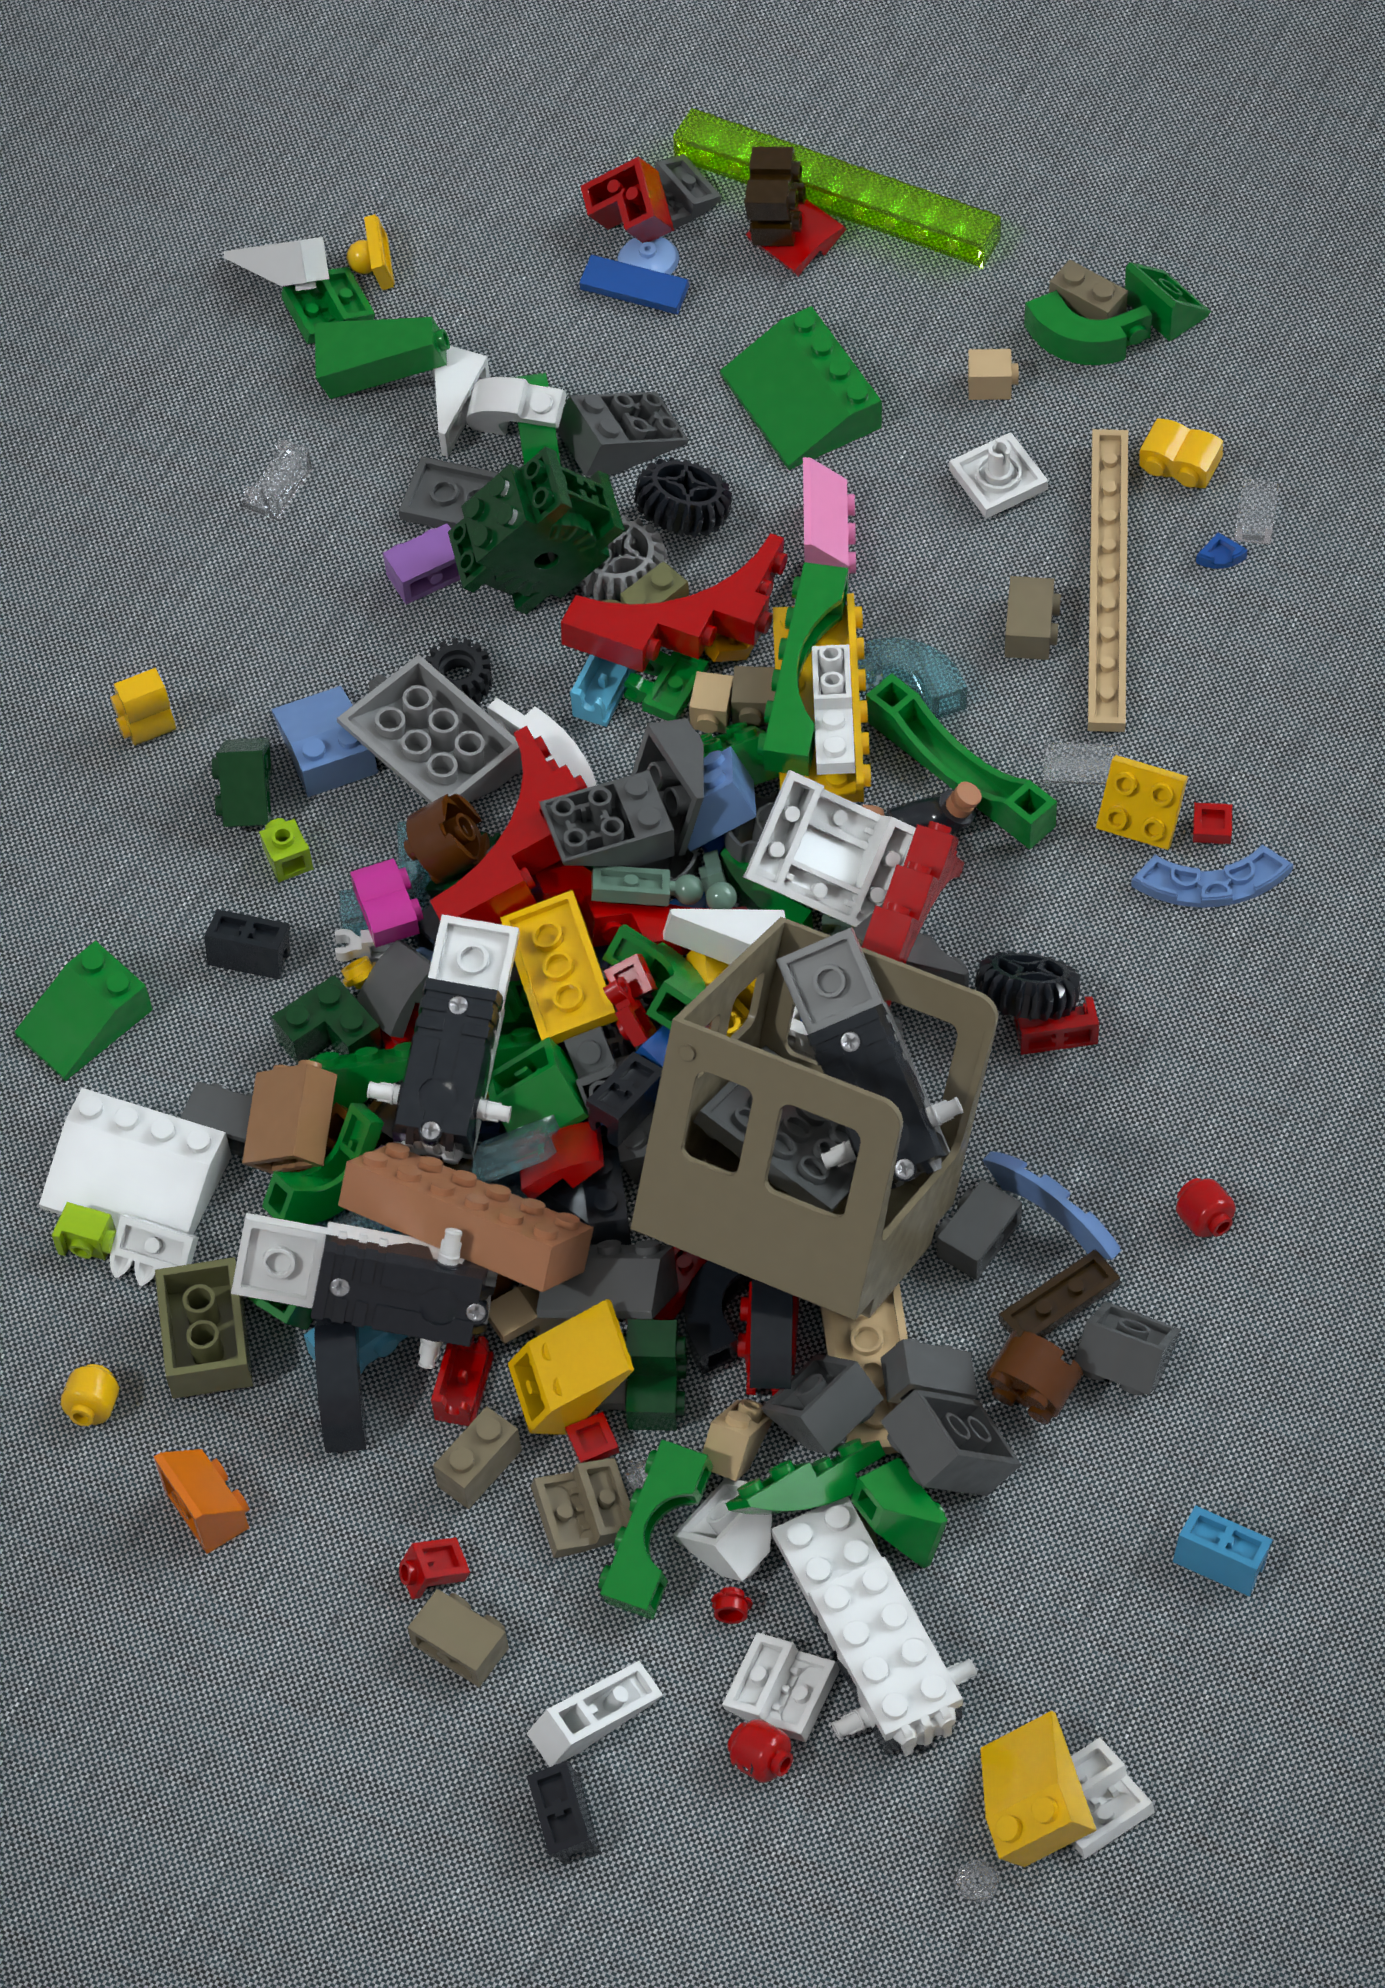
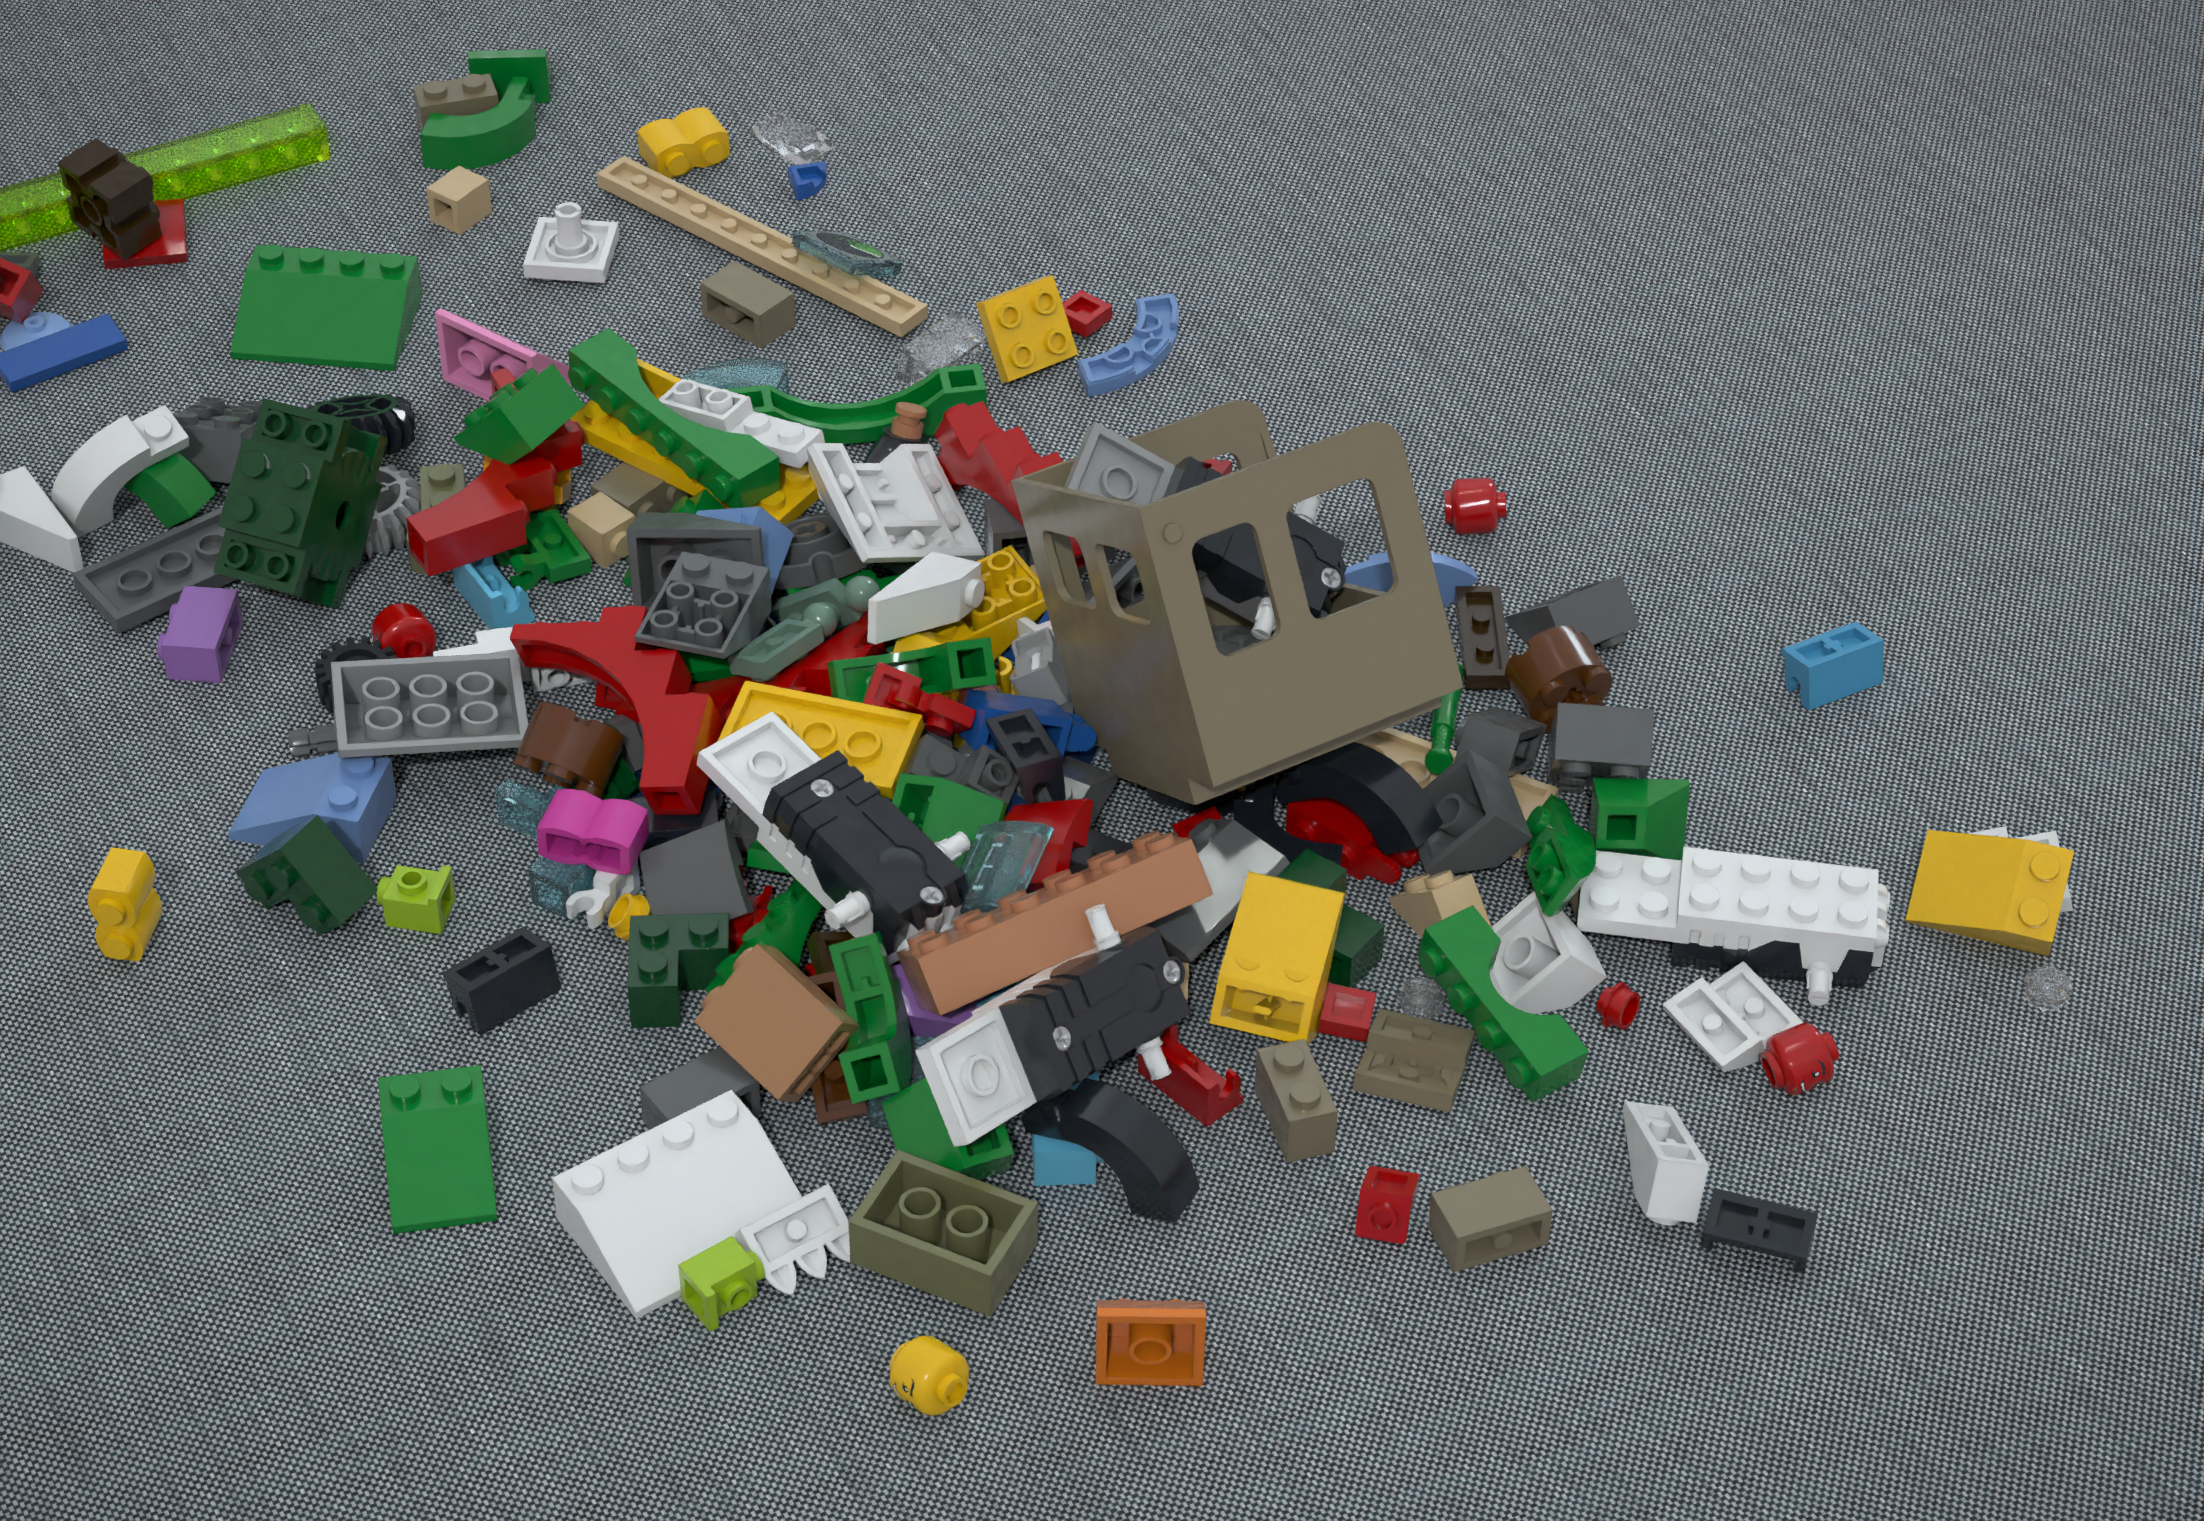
camera: 60 degrees left, 15 degrees down
(515, 668) = (405, 631): none -> red head
(716, 585) = (520, 416): none -> green slope
(954, 1319) = (1443, 731): none -> green piece
(1139, 636) = (847, 252): none -> clear light blue tile

